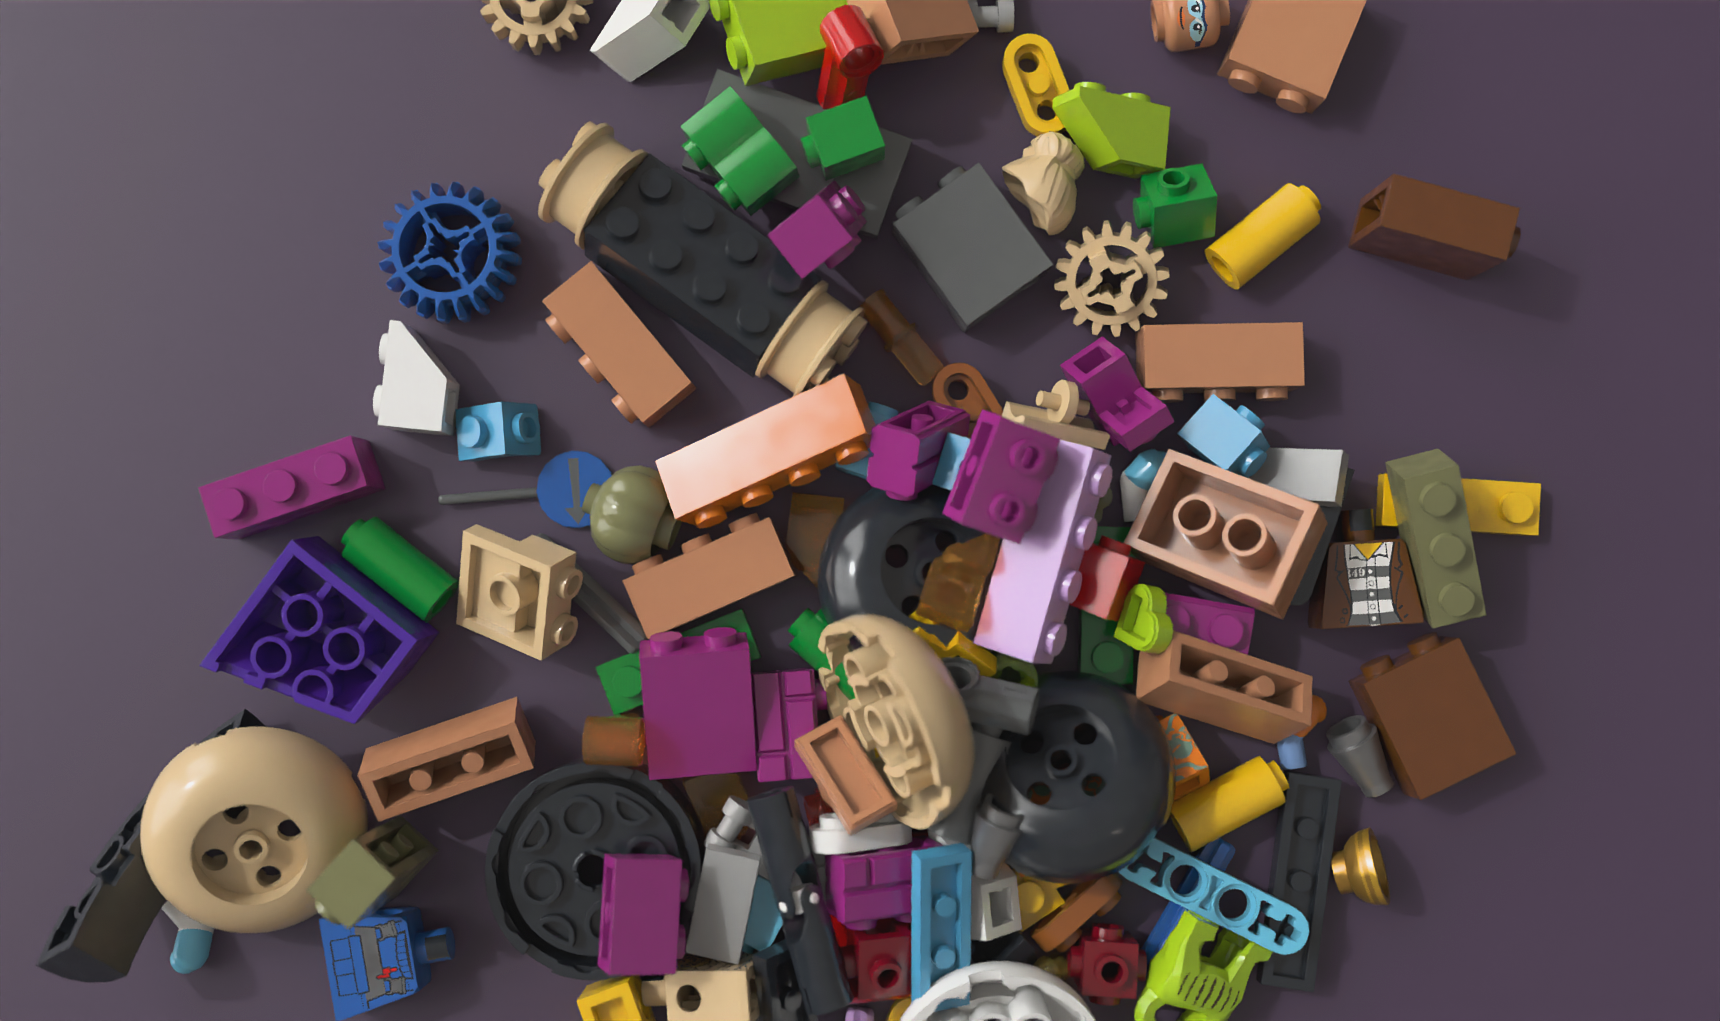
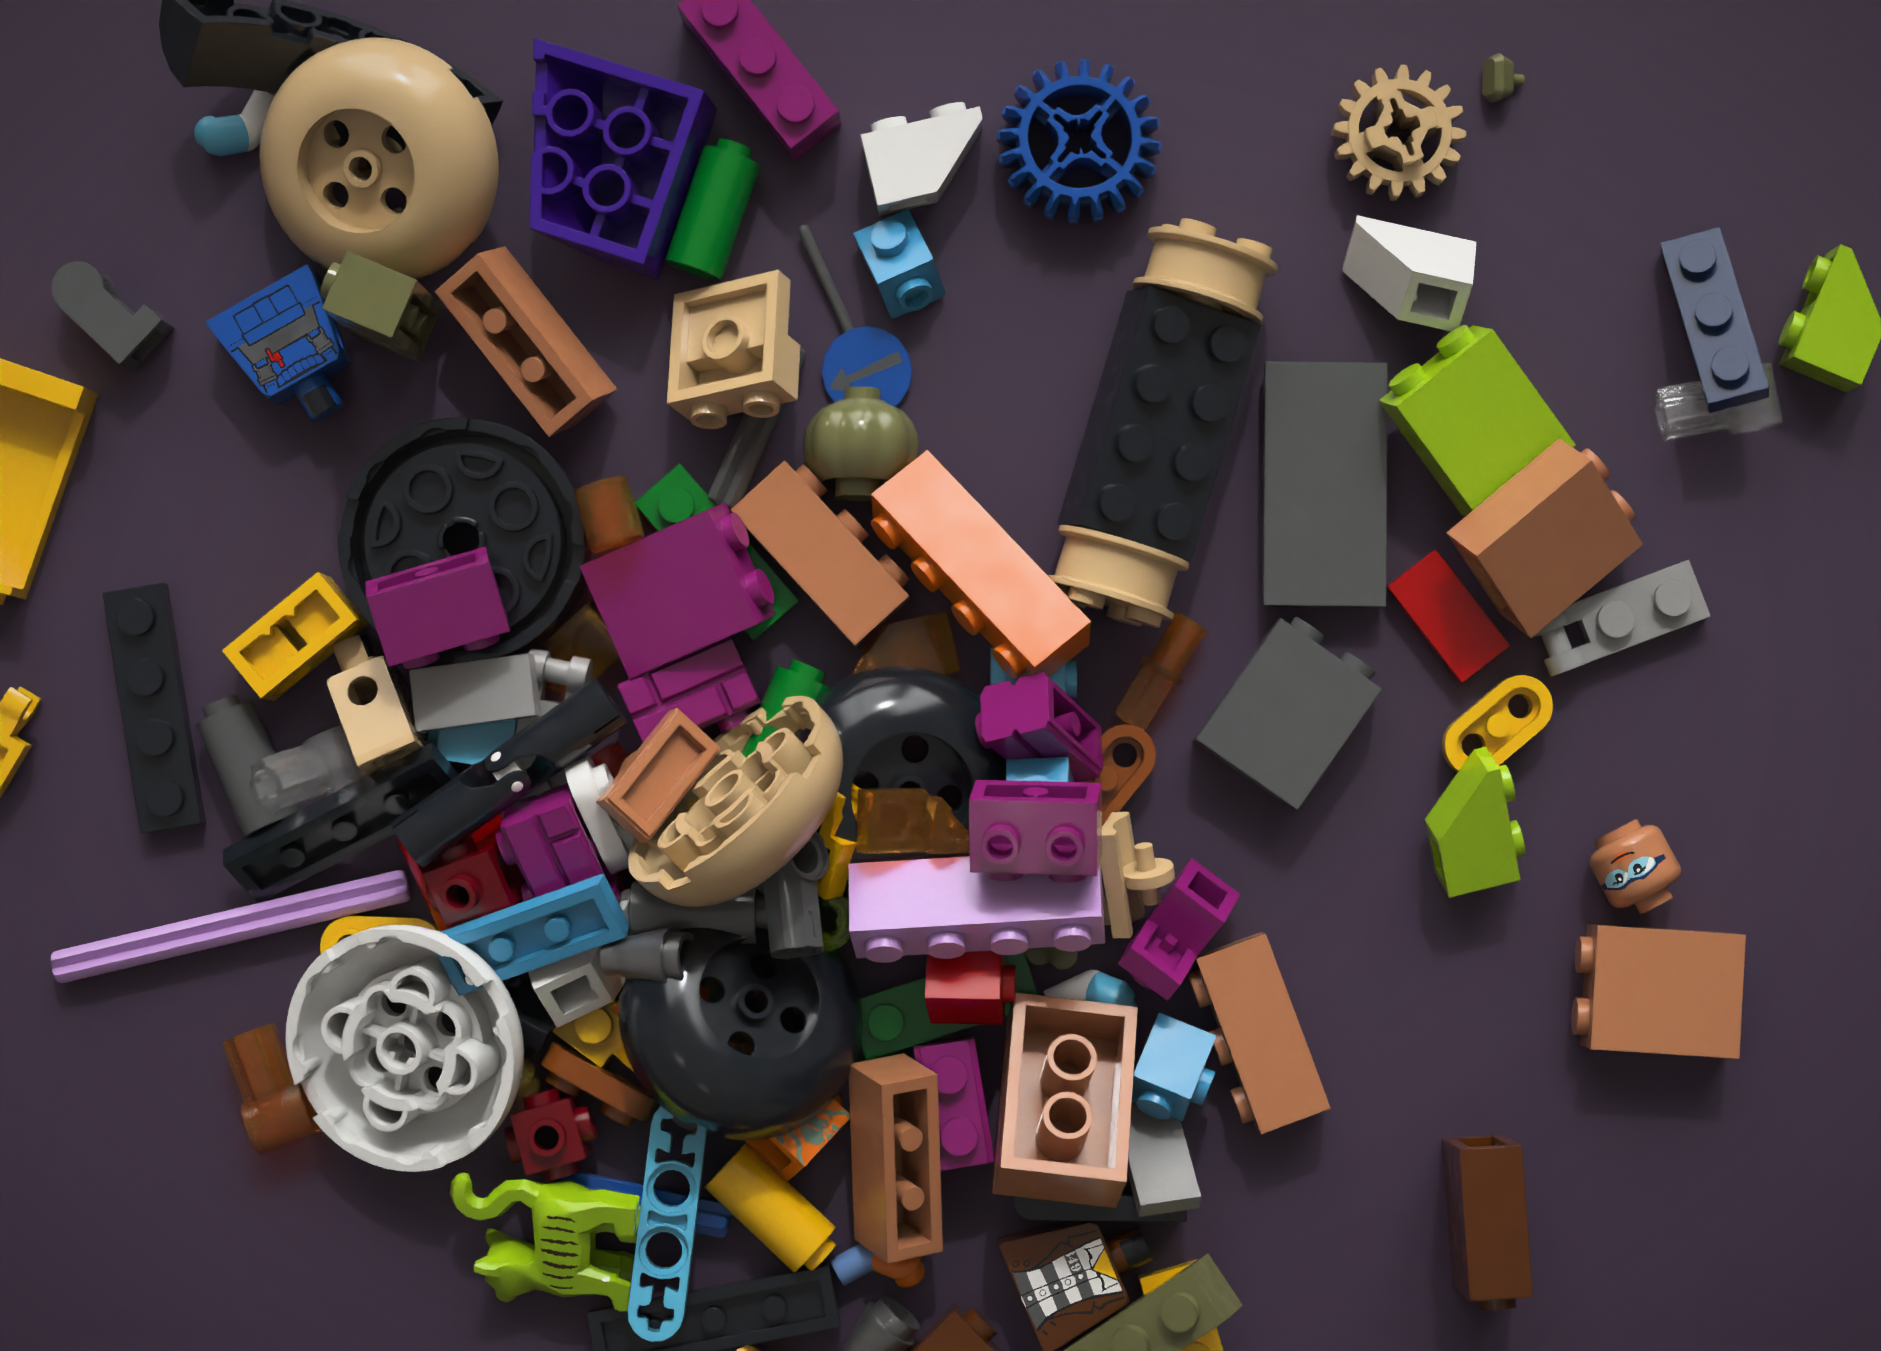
camera: 75 degrees right, 0 degrees up
(617, 346) = (1039, 362): nougat brick -> none
(739, 152) = (1298, 421): green brick -> none
(821, 229) = (1242, 541): magenta brick -> none
(843, 139) = (1351, 530): green brick -> none
(849, 56) = (1442, 504): red piece -> none
(936, 95) = (1447, 616): none -> red tile
(1046, 180) = (1392, 772): tan hair -> none
(1121, 298) = (1289, 899): tan gear -> none
(1144, 620) = (938, 1041): lime tile -> none
(1176, 205) = (1413, 925): green brick -> none
(1264, 234) = (1418, 1036): yellow brick -> none

